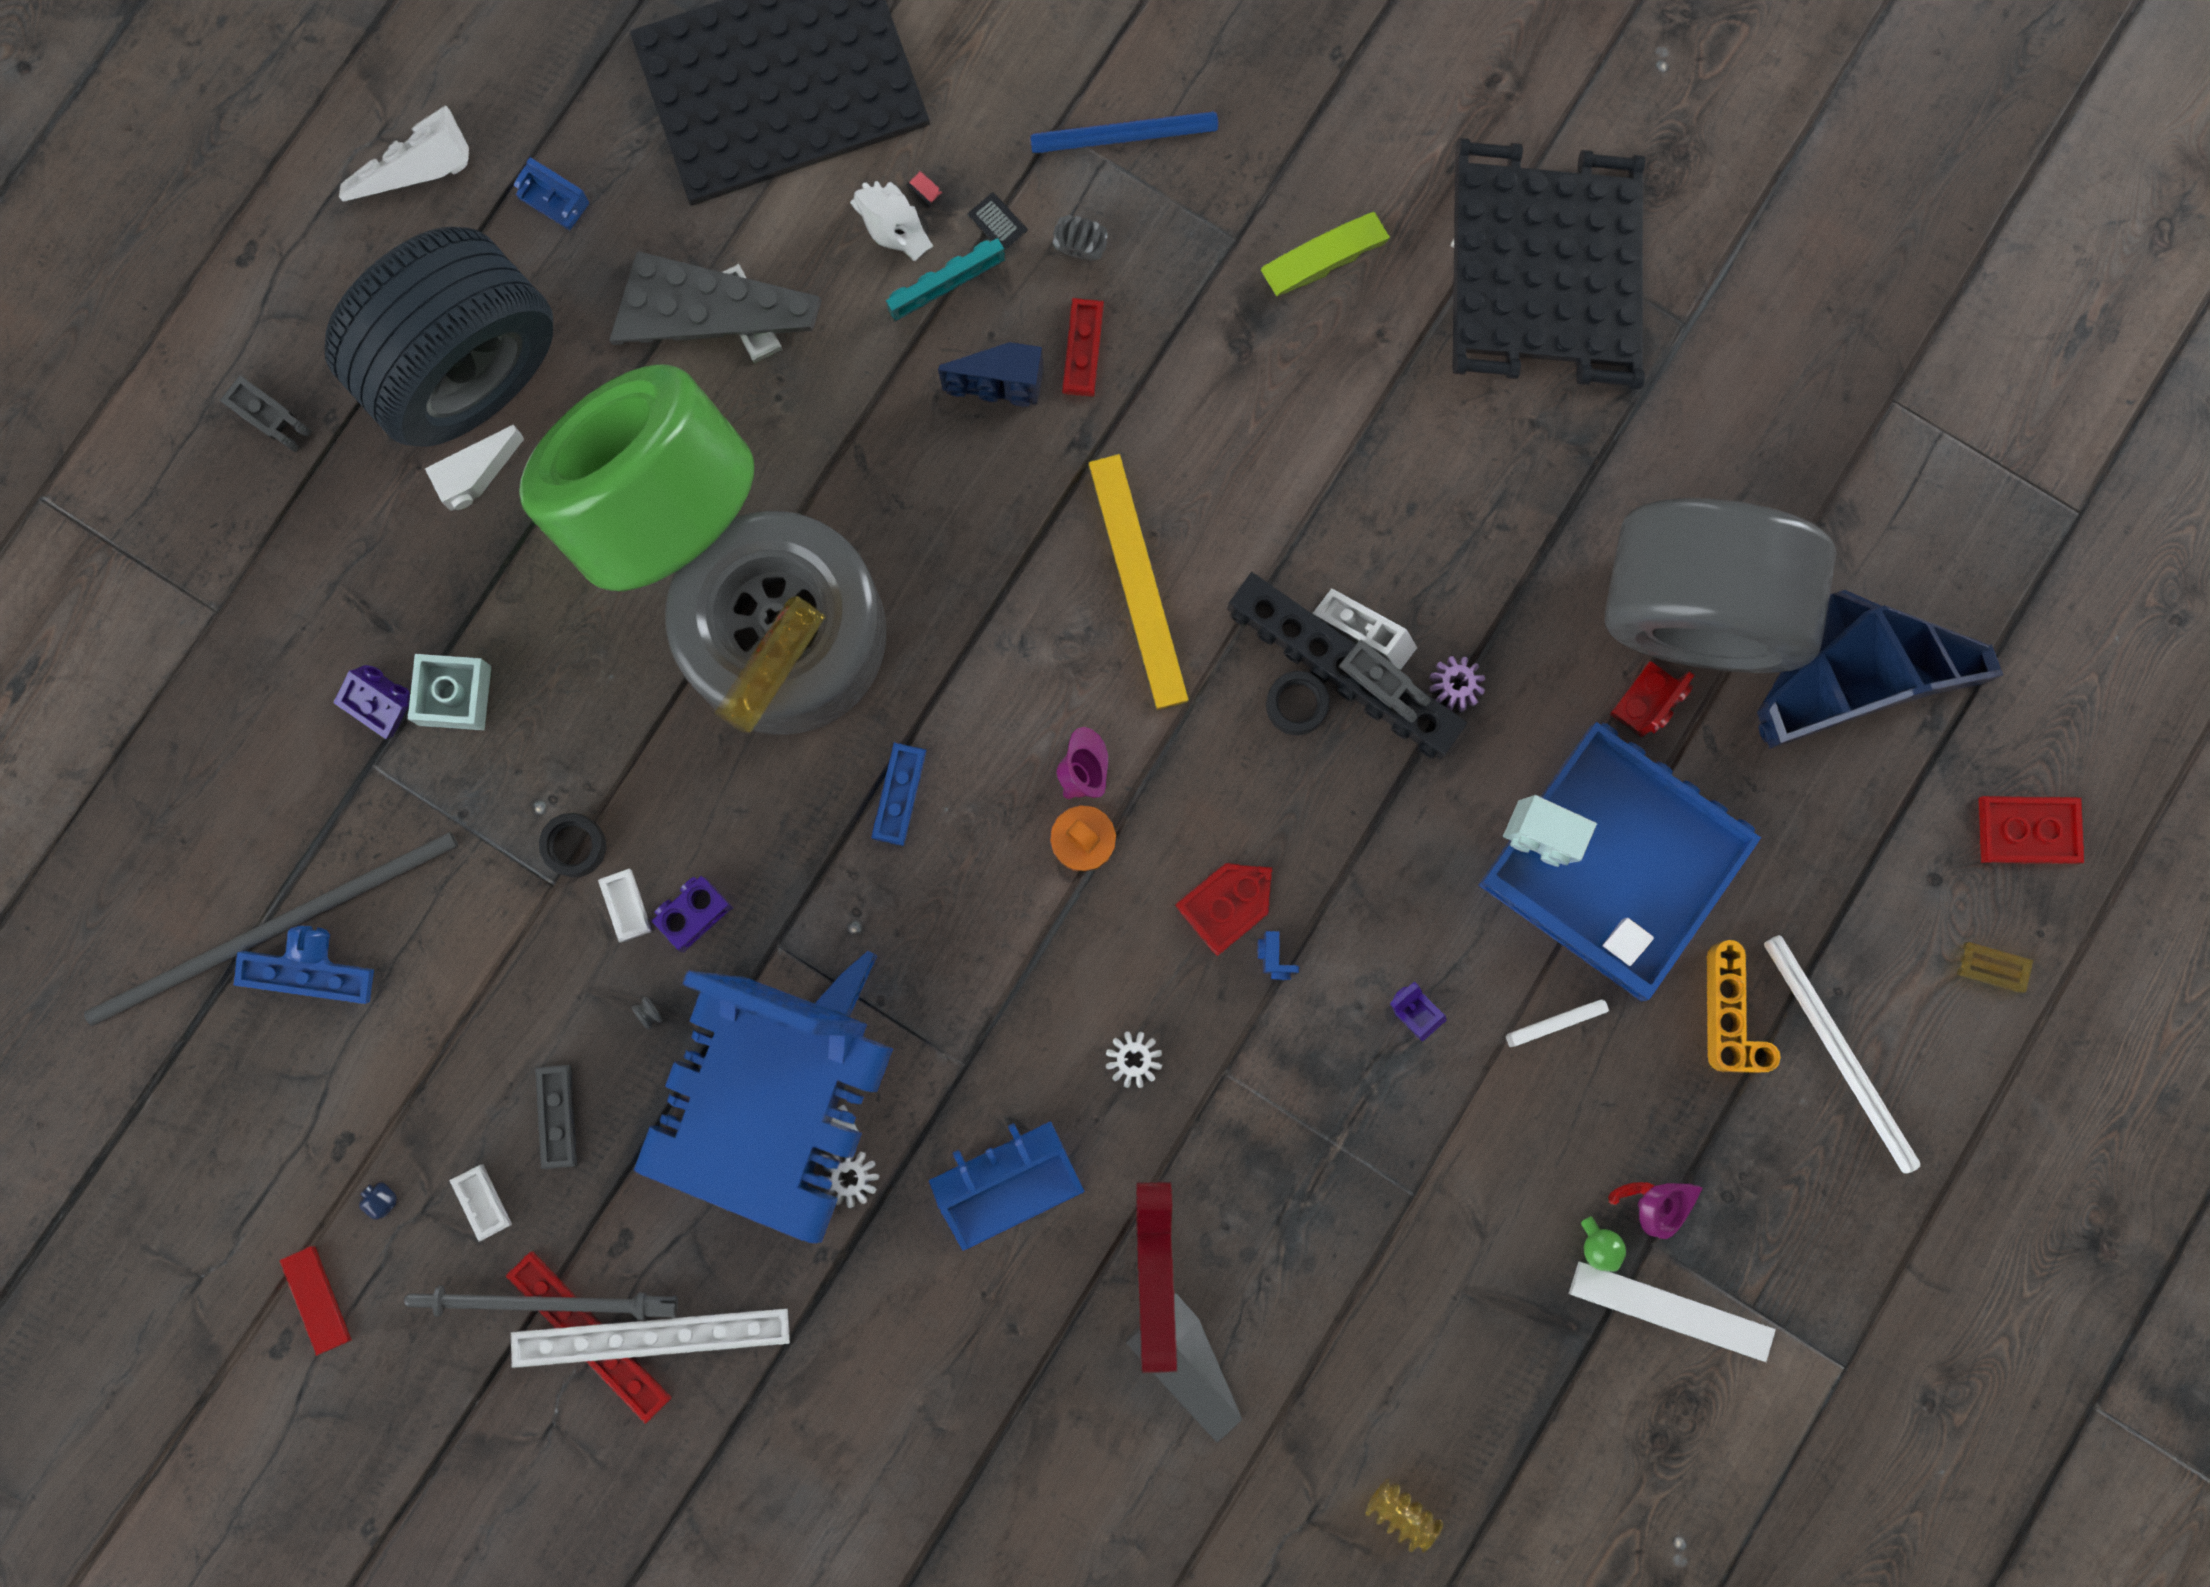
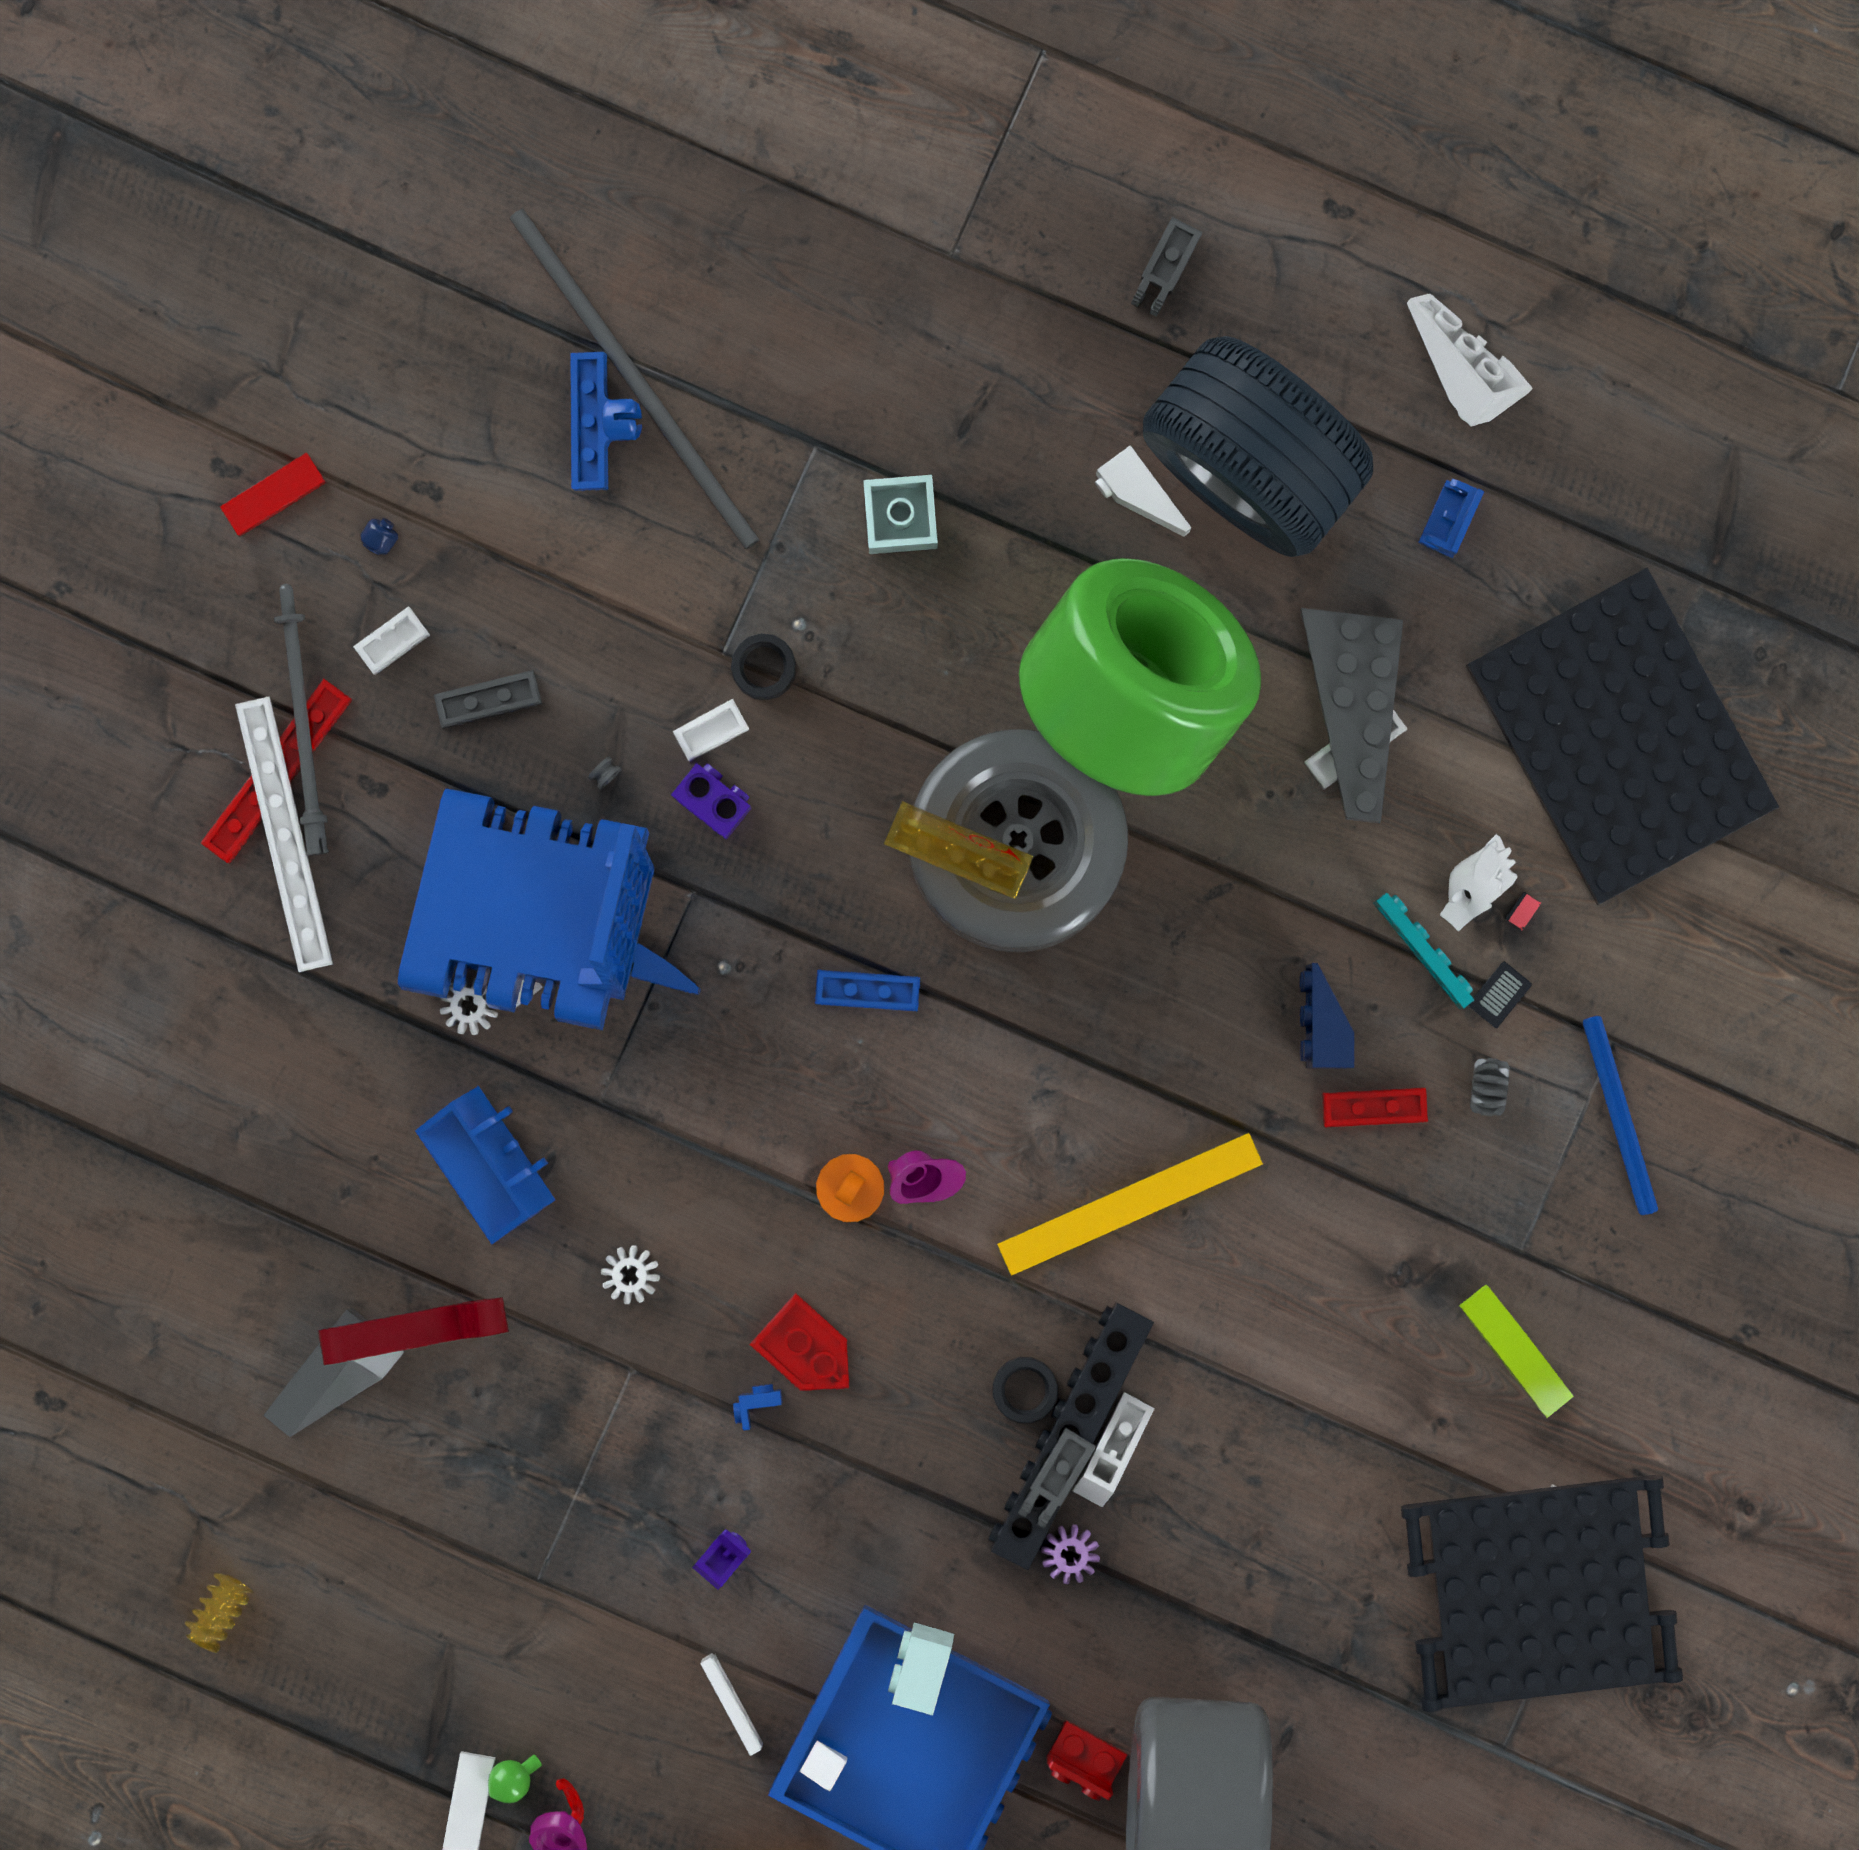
camera: 80 degrees right, 5 degrees up
(373, 700) = (882, 437): dark purple bracket -> none

